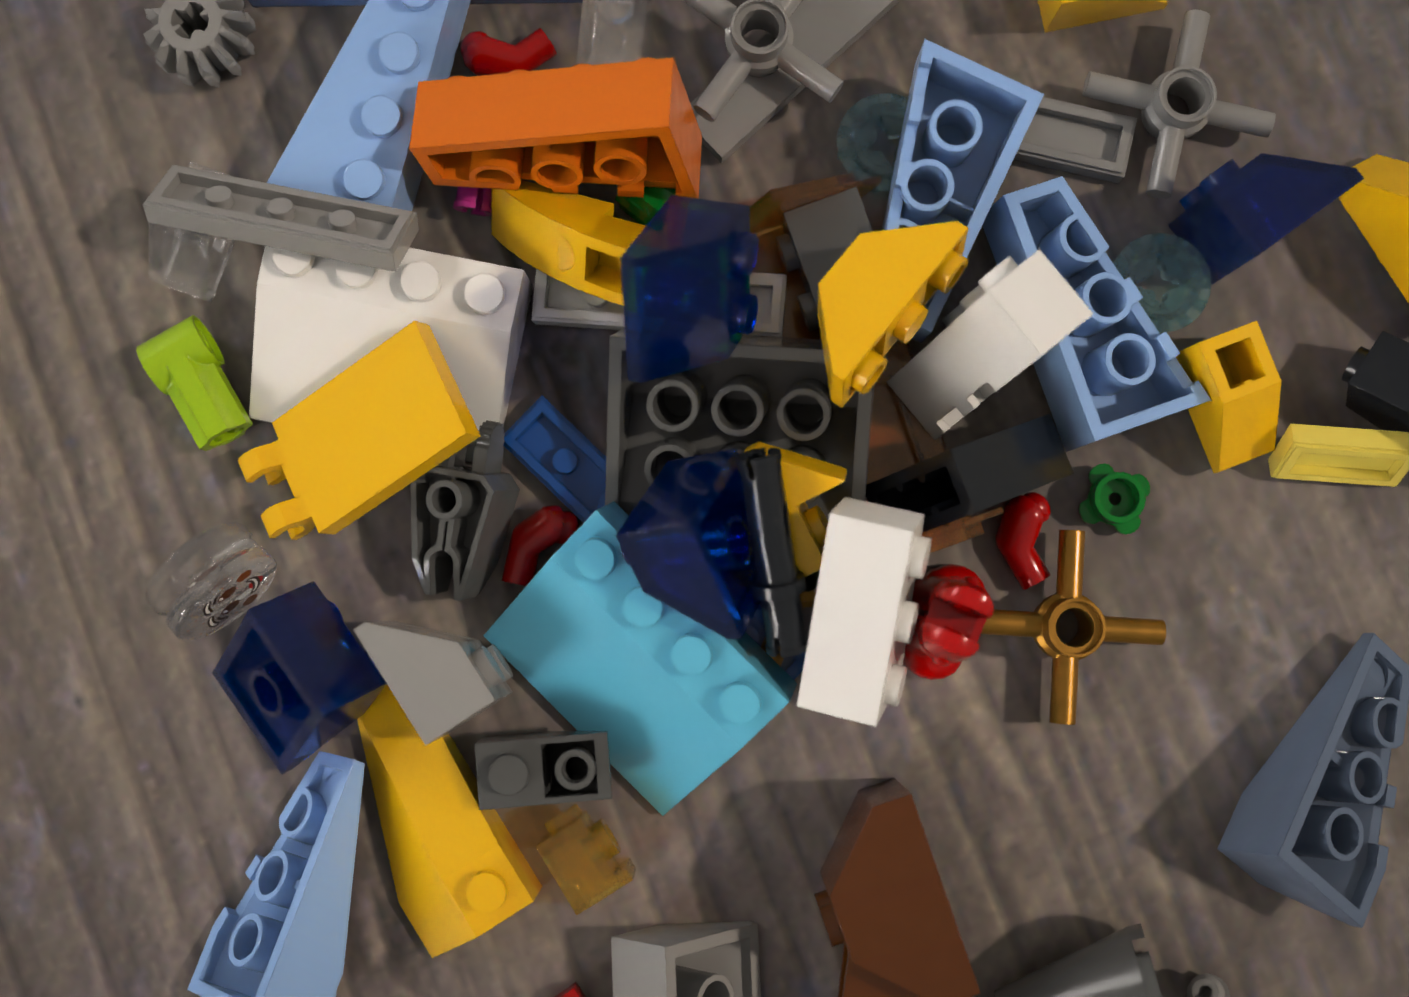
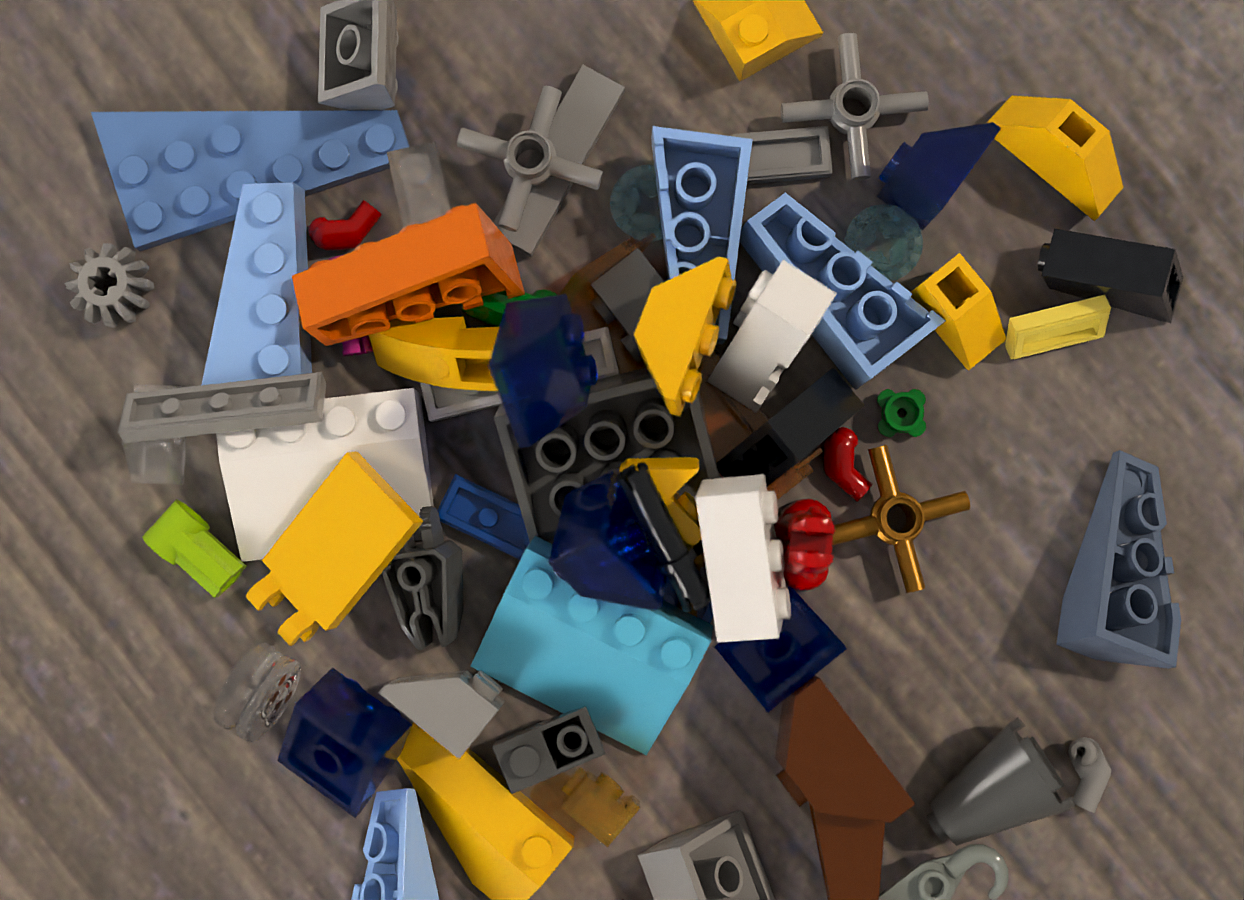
camera: 25 degrees left, 0 degrees up
(532, 537) = (484, 580): red arm -> none
(866, 761) = (782, 665): none -> clear blue slope

